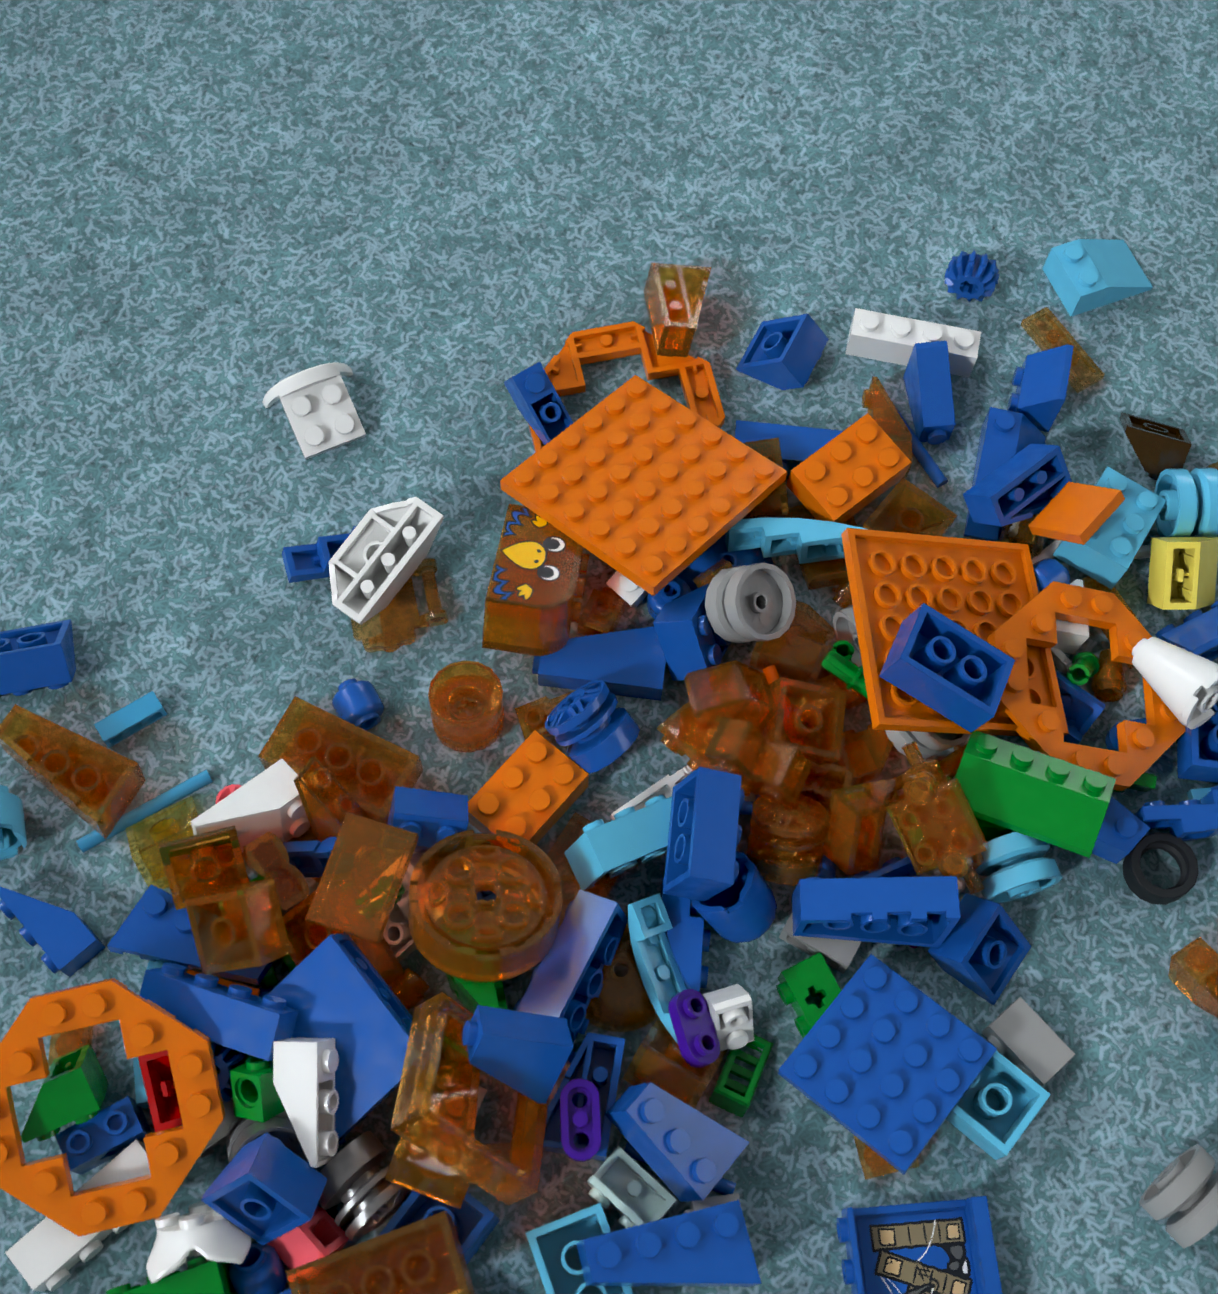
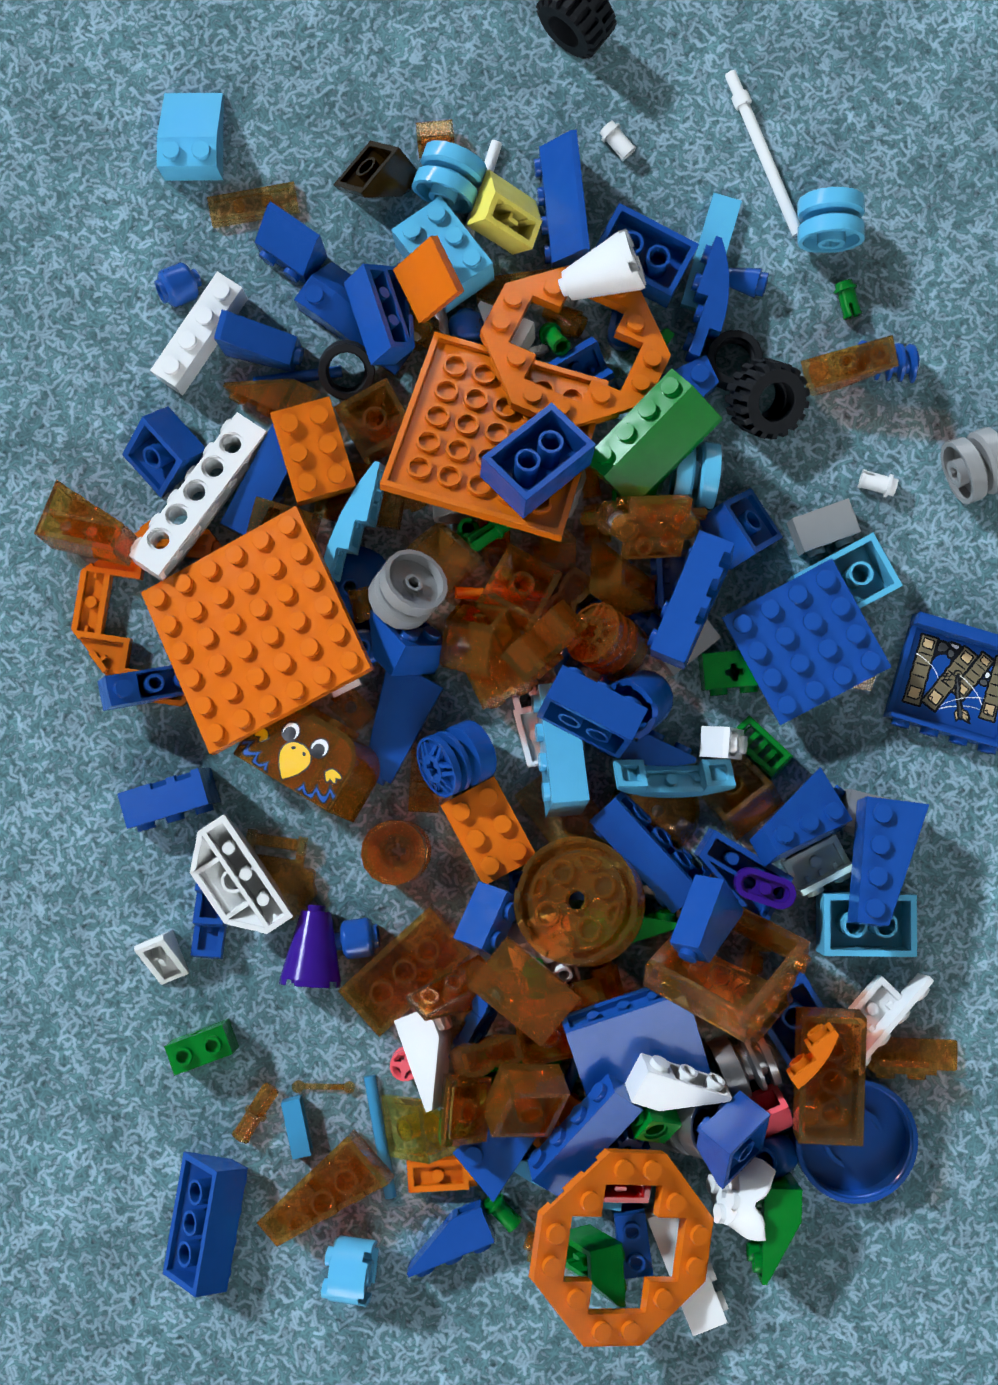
camera: 65 degrees left, 20 degrees up
(99, 967) = (502, 1212): none -> green pin
(118, 882) = (440, 1175): none -> orange hinge
(133, 672) = (255, 1113): none -> clear orange axle
(175, 708) = (299, 1085): none -> clear orange hinge
(189, 592) = (201, 1047): none -> green brick
(272, 524) = (163, 957): none -> white slope
(318, 408) = (62, 880): white piece -> none
(326, 661) = (312, 951): none -> dark purple cone
(412, 1239) = (820, 1043): none -> orange slope
(439, 474) = (169, 799): none -> blue wedge
(693, 1028) = (726, 775): dark purple plate -> none
(802, 407) = (200, 513): none -> white brick
(939, 458) = (324, 375): none -> black tyre
(950, 307) = (178, 284): none -> blue head
(971, 276) = (154, 249): blue gear -> none
(1110, 1091) = (878, 483): none -> white pin
(1143, 945) = (787, 404): none -> black tyre

